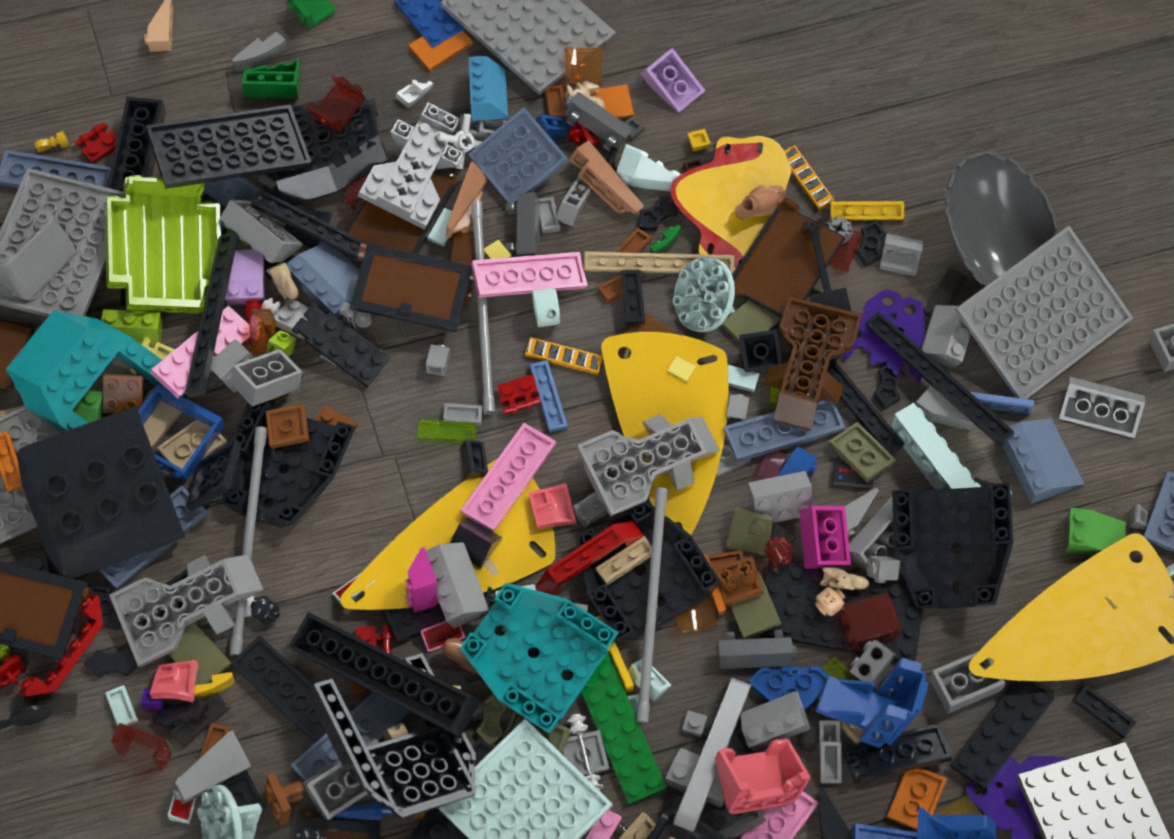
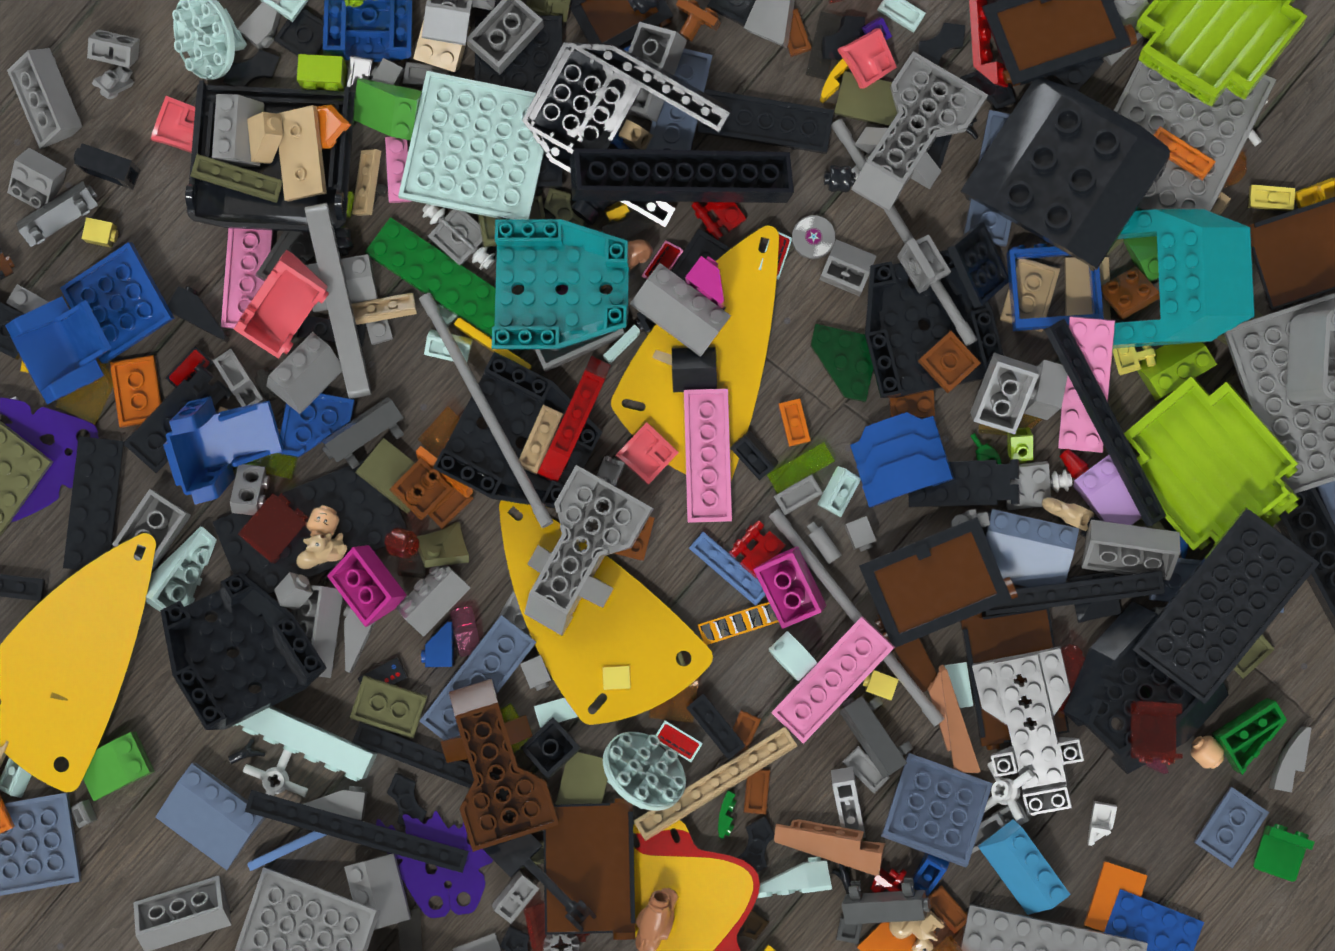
camera: 145 degrees right, 20 degrees up
(252, 501) = (923, 262): none -> light grey bracket
(261, 329) = (1050, 448): clear orange slope -> none
(308, 541) = (847, 267): none -> light grey slope
(309, 360) = (985, 451): none -> green hand
(310, 88) = (1207, 752): none -> light nougat head
(316, 583) = (813, 237): none -> light grey tile
(331, 39) = (1231, 827): none -> sand blue plate
(358, 483) = (845, 360): none -> dark green plate
(373, 385) = (900, 457): none -> blue slope
(429, 462) = (794, 422): none -> orange plate
(431, 399) = (839, 491): none -> light aqua slope
(468, 370) = (823, 543): none -> light grey cylinder
(514, 351) = (790, 587): none -> dark pink slope
(664, 306) = (678, 741): none -> red slope
(678, 735) = (384, 308): none -> tan tile
(852, 276) = (515, 897): none -> light grey hinge
(864, 789) = (185, 368): none -> red slope
(964, 638) = (181, 572): none -> light aqua wedge
(973, 452) = (283, 776): none -> white bar

